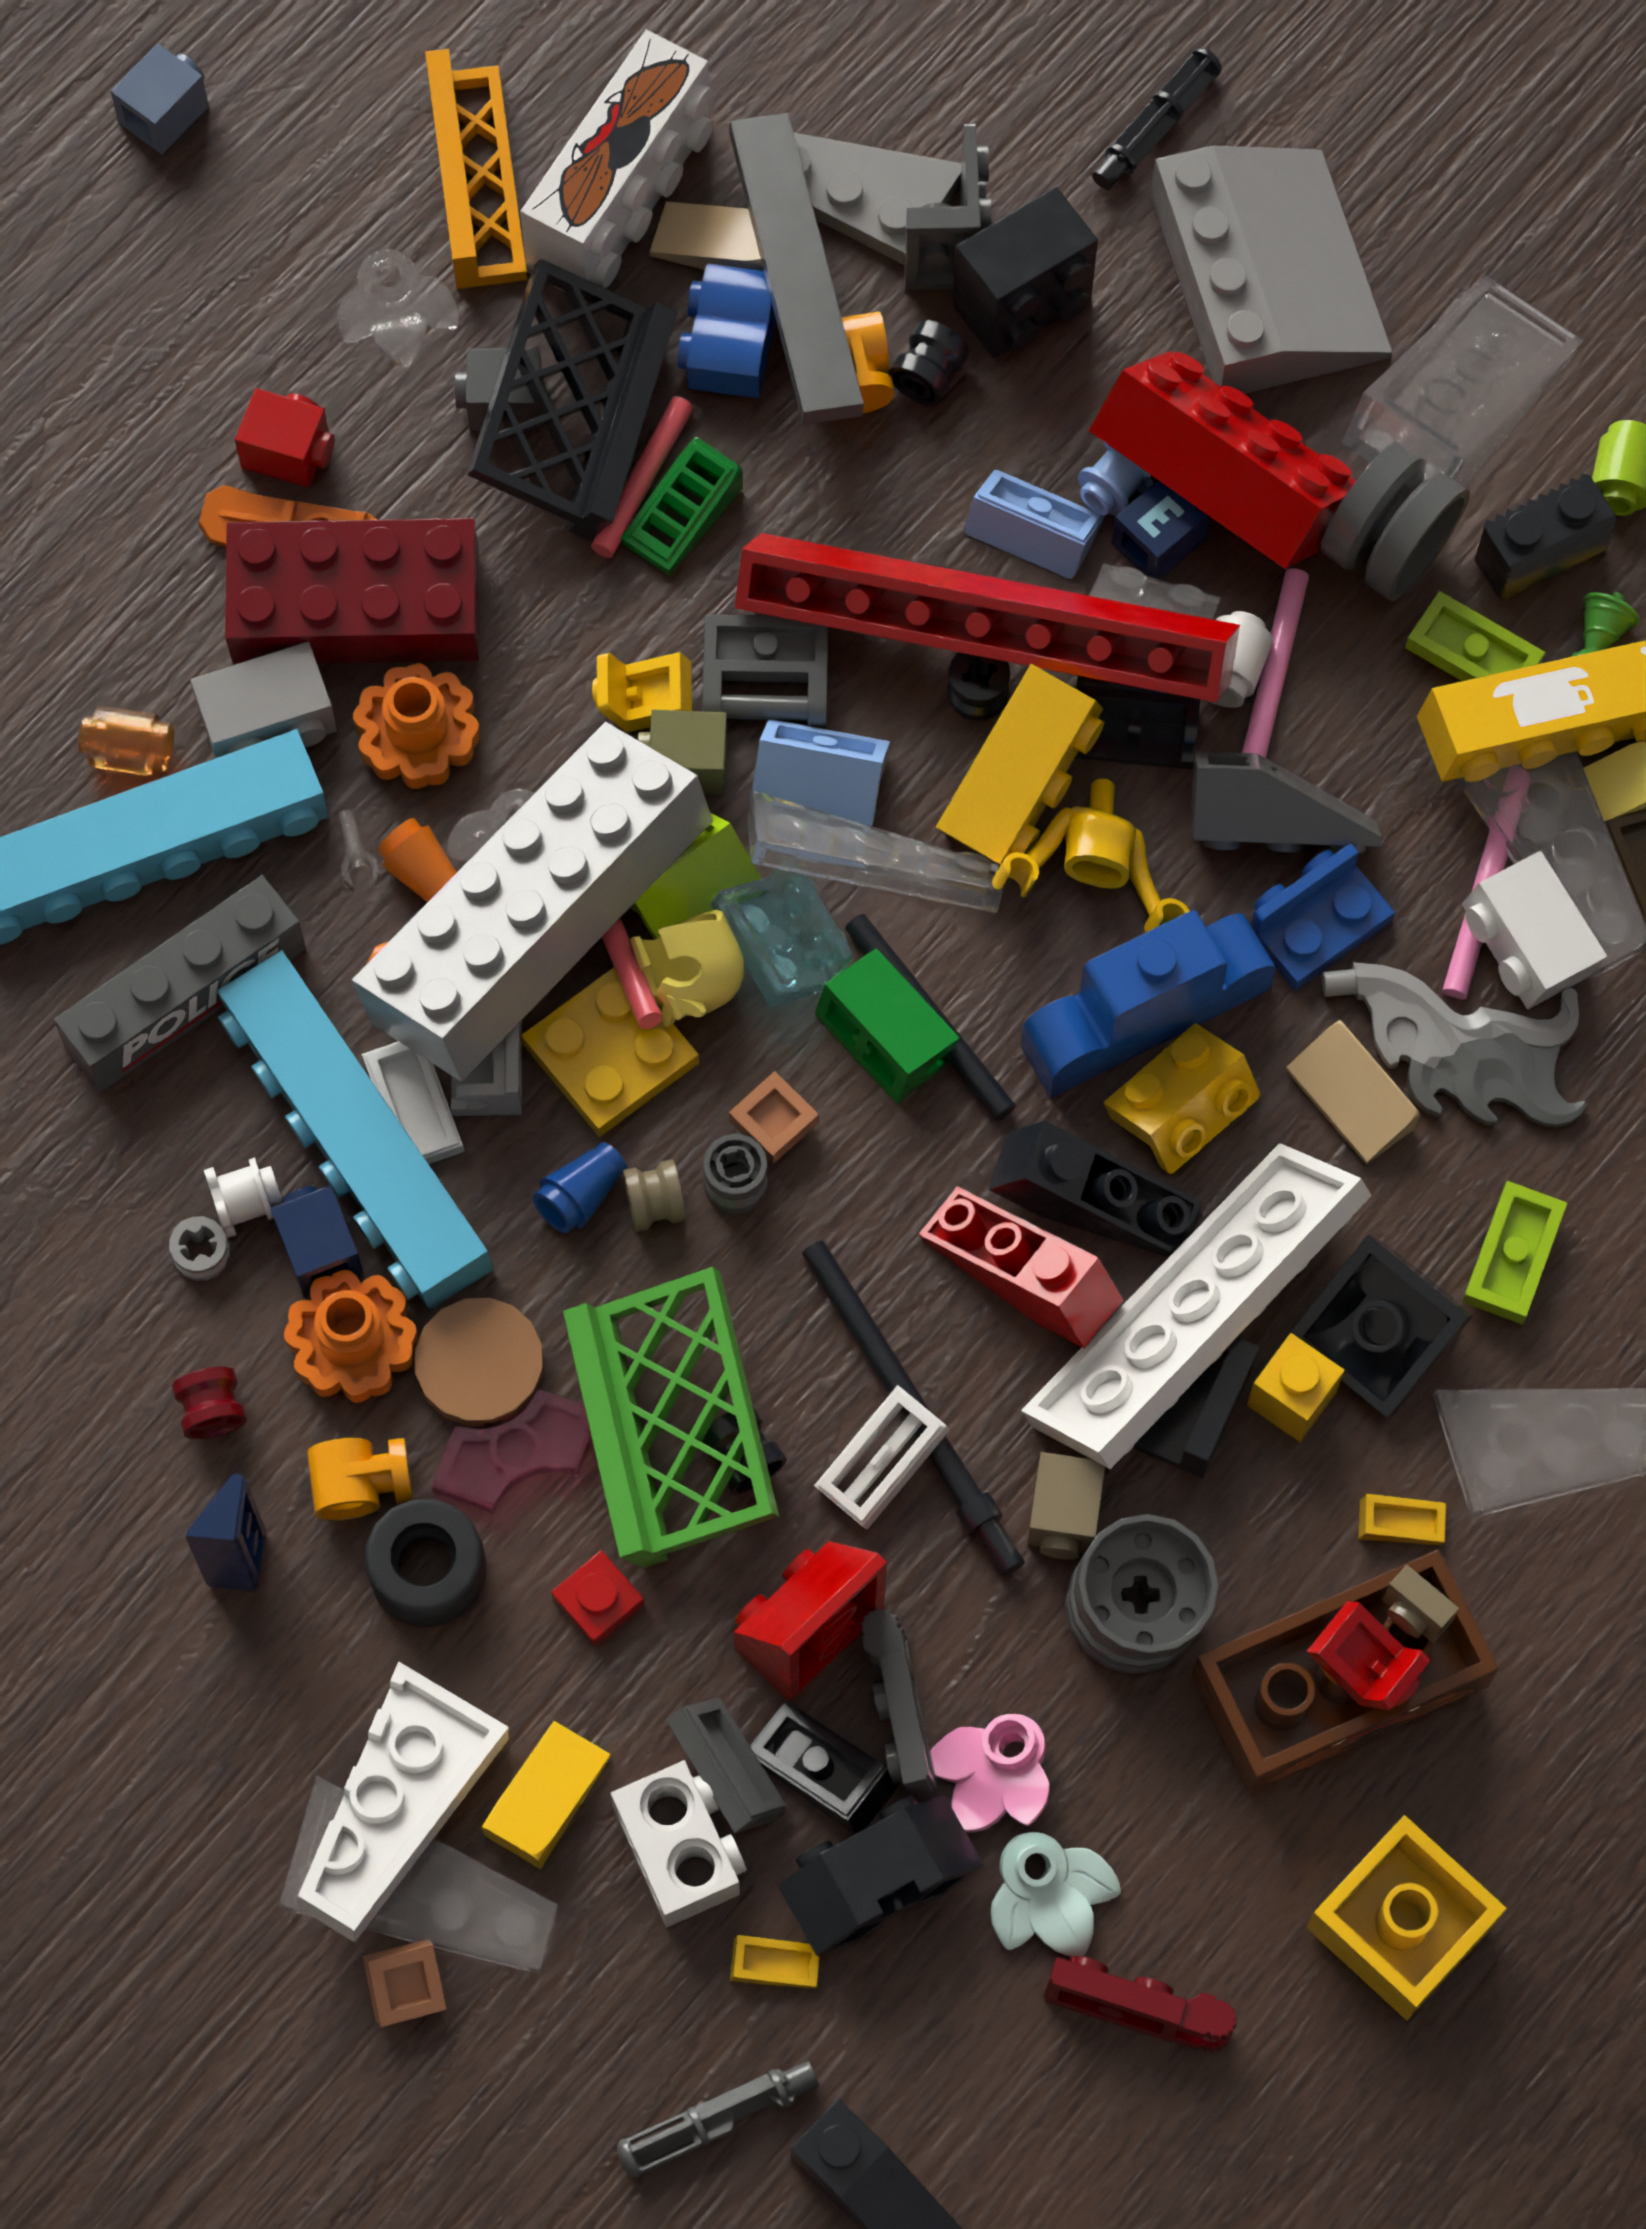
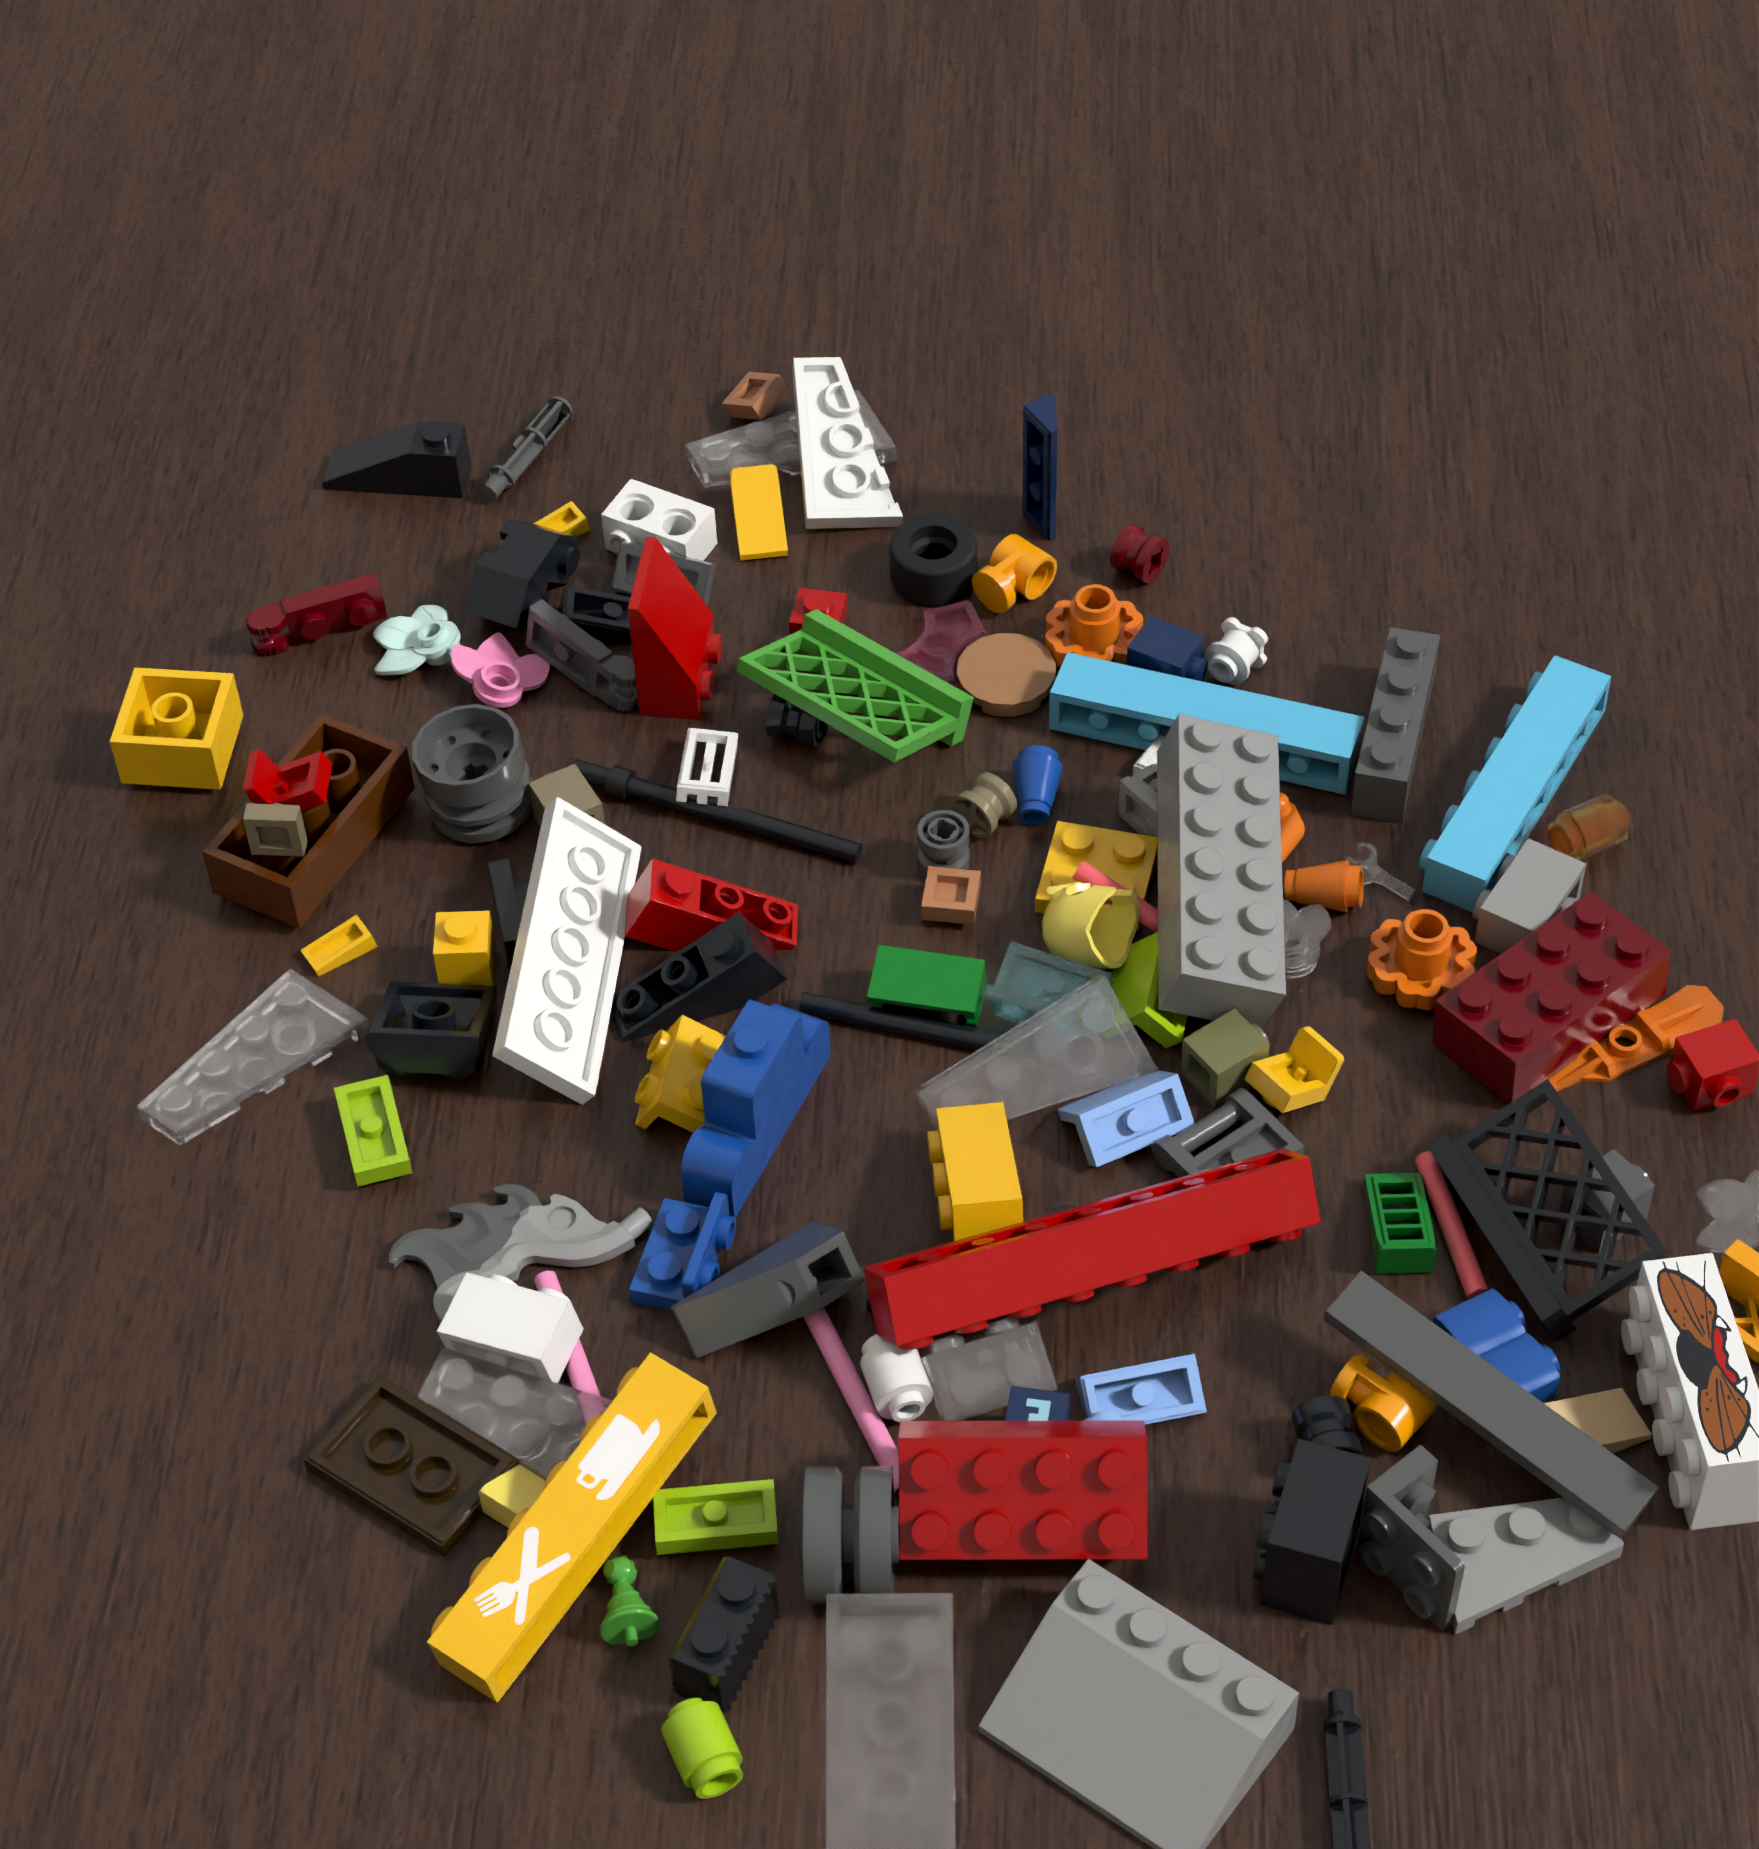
camera: 145 degrees right, 20 degrees down
(196, 1230) = (1227, 609): light grey bush -> none
(1099, 852) = (879, 1180): yellow piece -> none
(1353, 1092) = (566, 1163): tan slope -> none

